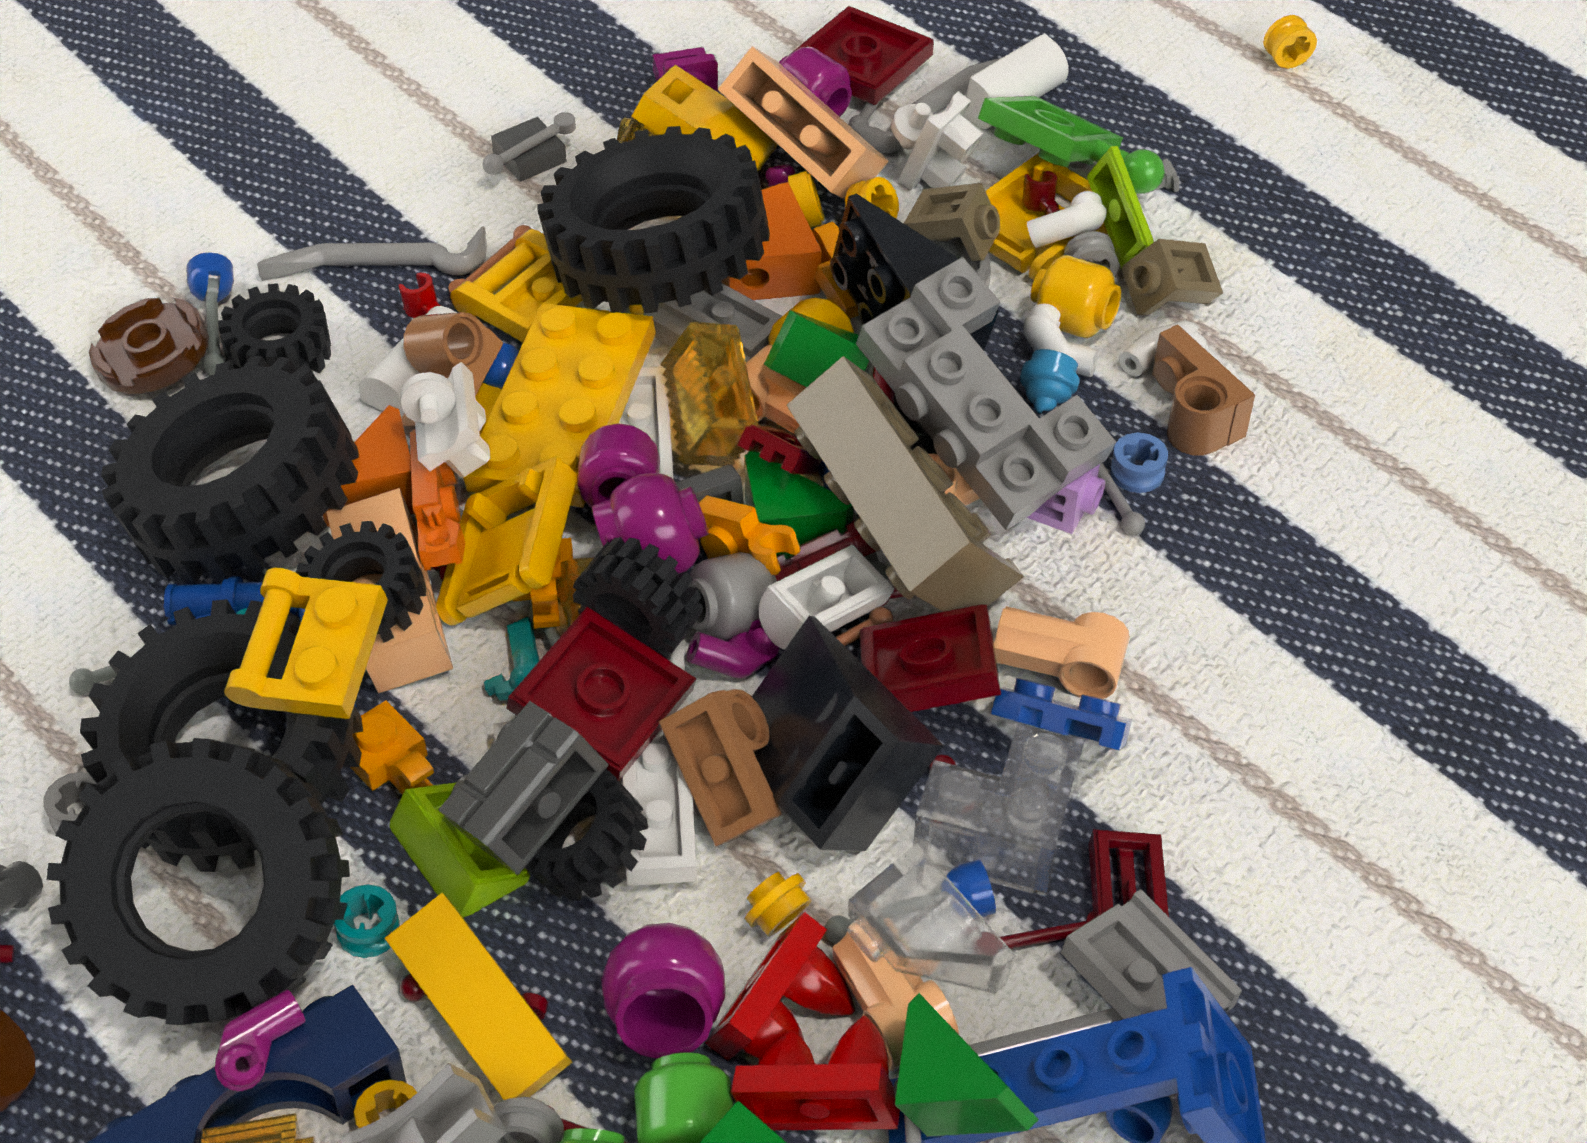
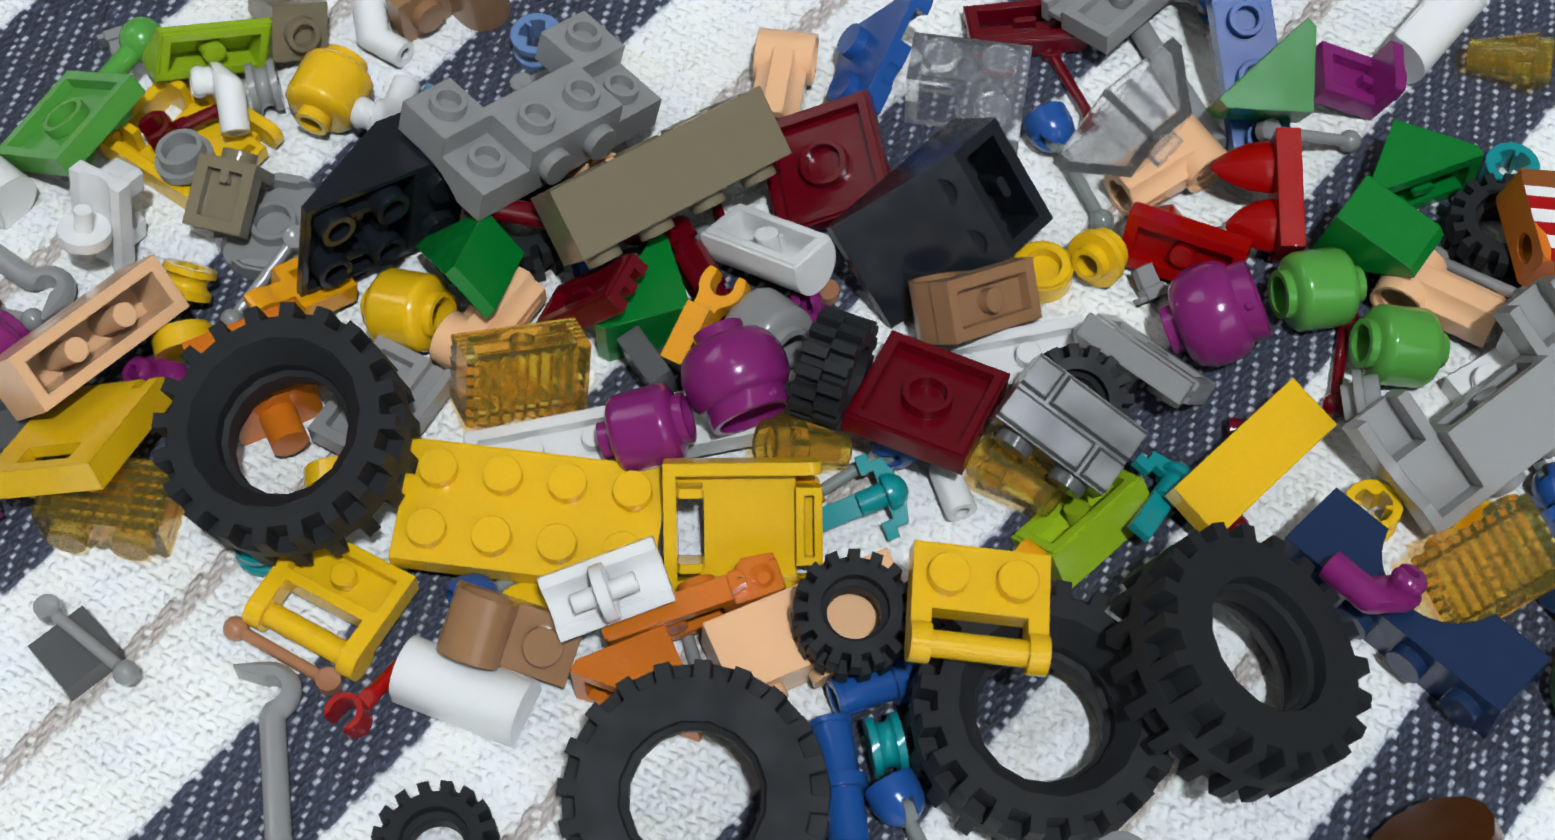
camera: 95 degrees left, 10 degrees up
(486, 927) = (1156, 506): none -> teal piece
(614, 898) = (1165, 373): none -> light grey plate
(739, 956) = (1148, 284): none -> light grey piece
(778, 850) = (1051, 267): none -> yellow tile
(1009, 196) = (178, 155): none -> light grey plate

